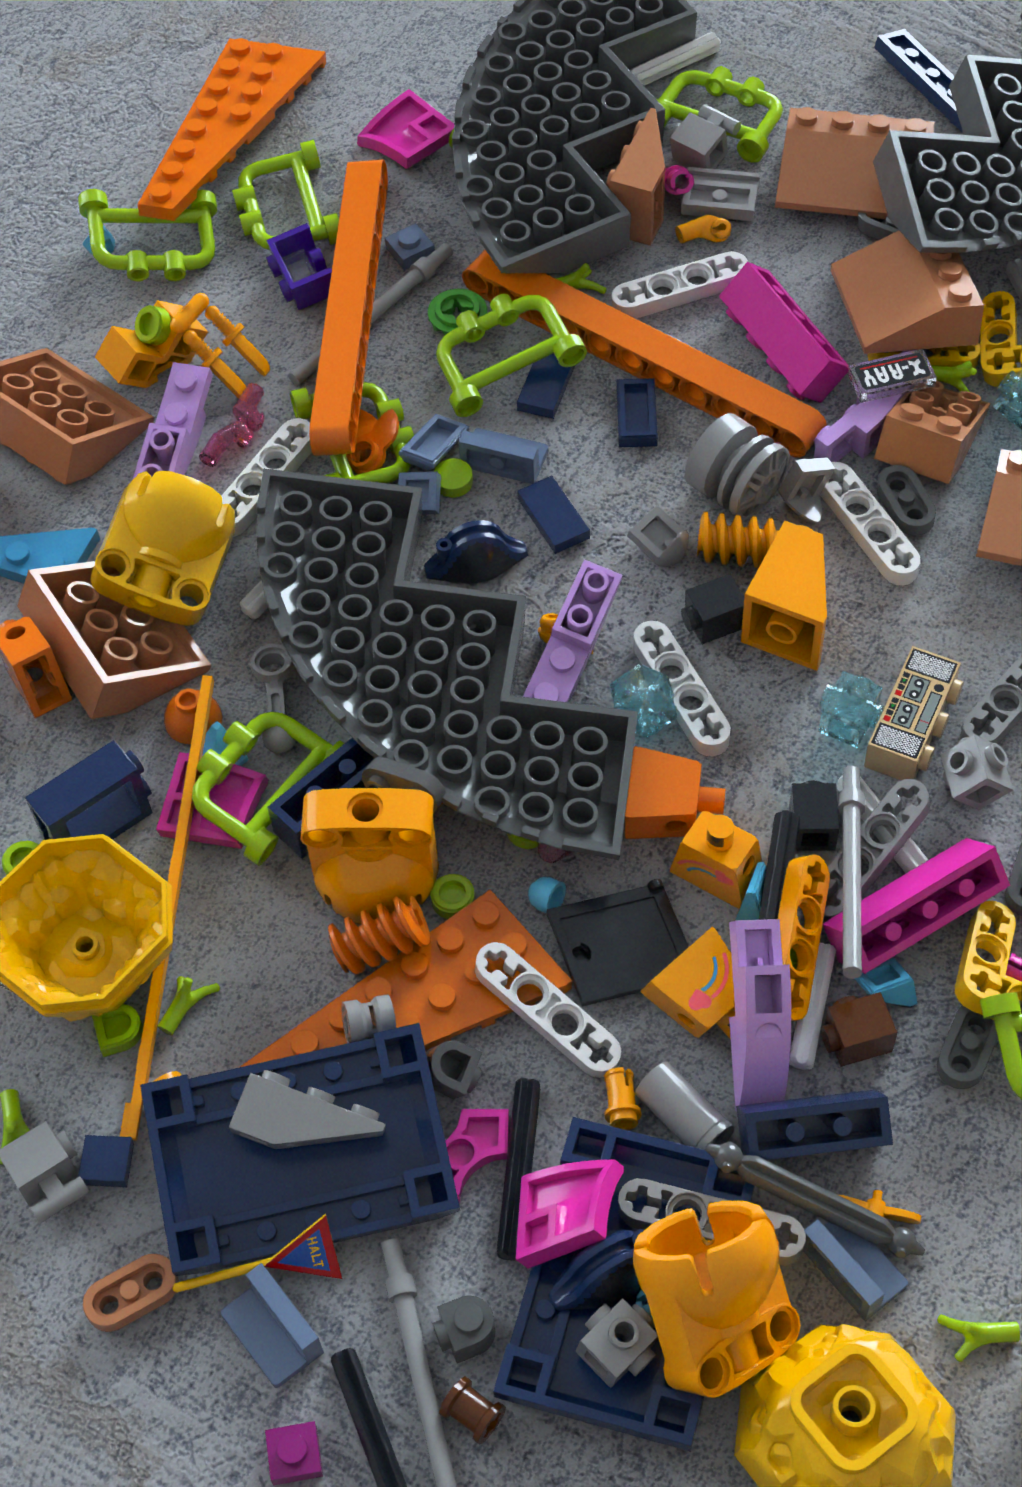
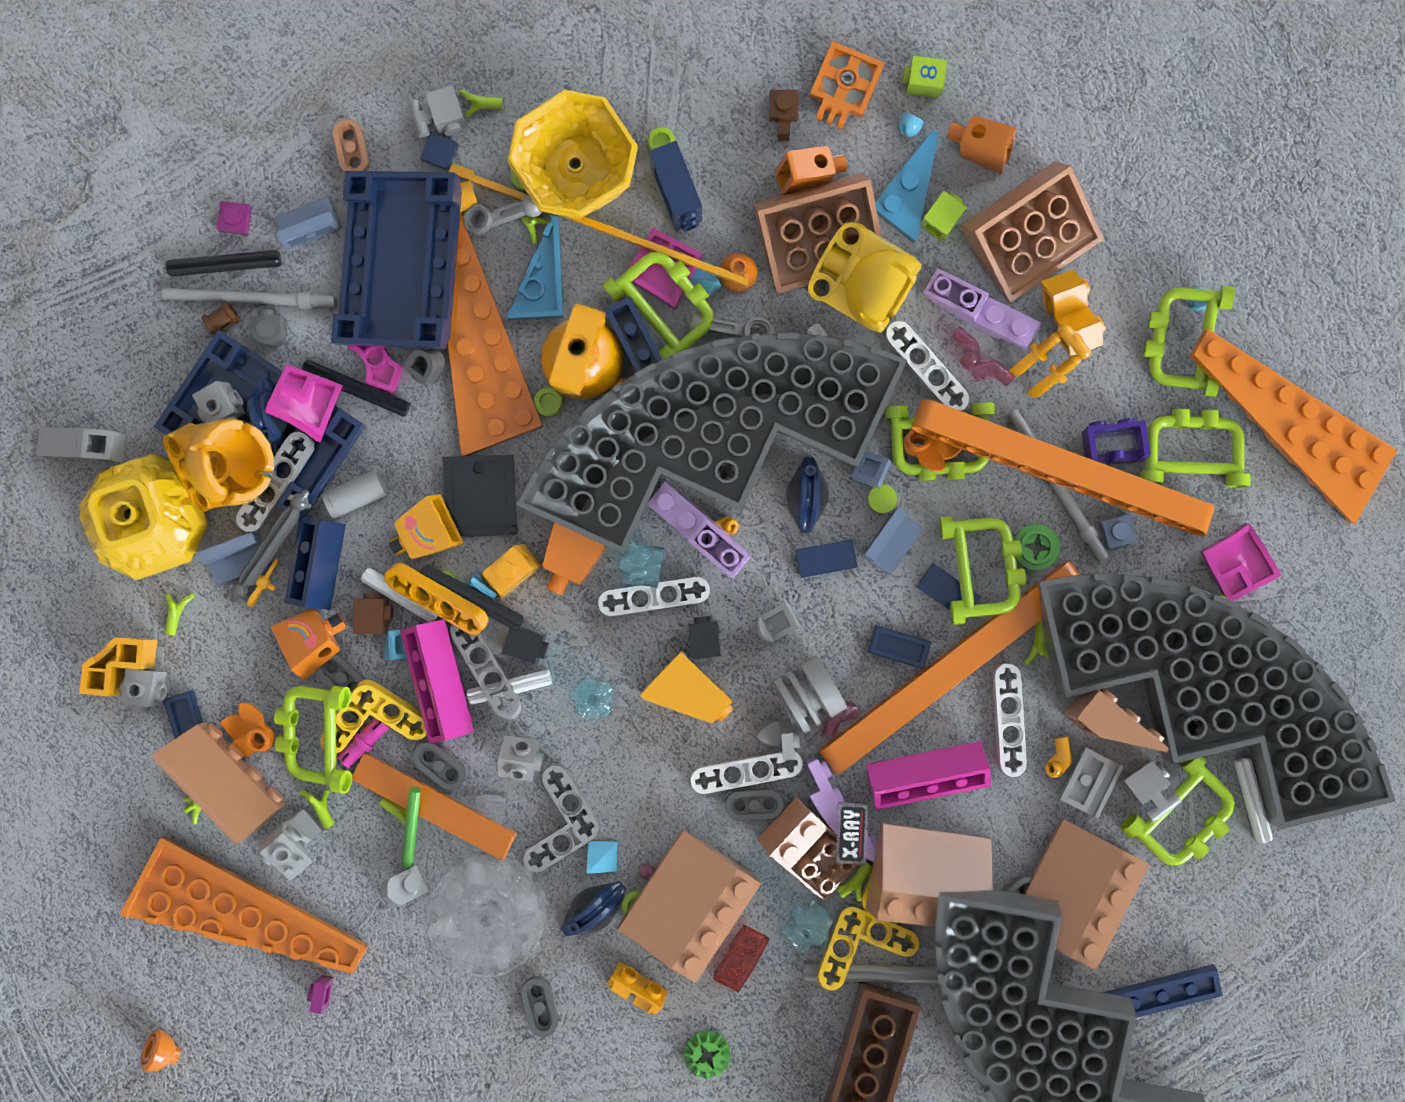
camera: 105 degrees right, 30 degrees up
(56, 504) = (943, 215): none -> lime brick
(153, 325) = (1080, 315): lime tile -> none
(163, 988) = (499, 216): none -> light grey piece
(281, 949) = (542, 289): none -> dark azure wing
(289, 1118) = (405, 258): light grey slope -> none
(308, 1253) = (338, 255): piece -> none
(364, 1019) = (466, 315): light grey wheel -> none
(379, 936) = (523, 345): orange piece -> none
(393, 774) = (601, 391): dark grey plate -> none
(432, 442) = (914, 493): sand blue tile -> none
(546, 893) = (527, 459): medium azure hinge -> none
(552, 1004) = (446, 436): white beam -> none
(622, 1107) = (376, 460): light orange pin -> none
(684, 183) = (1106, 750): dark pink pin -> none
(735, 539) = (753, 675): light orange piece -> none
(762, 1012) = (388, 556): lavender slope -> none
(851, 806) = (517, 668): light grey bar -> none
(914, 715) = (577, 738): brick -> none
(934, 1098) = (308, 640): none -> orange torso

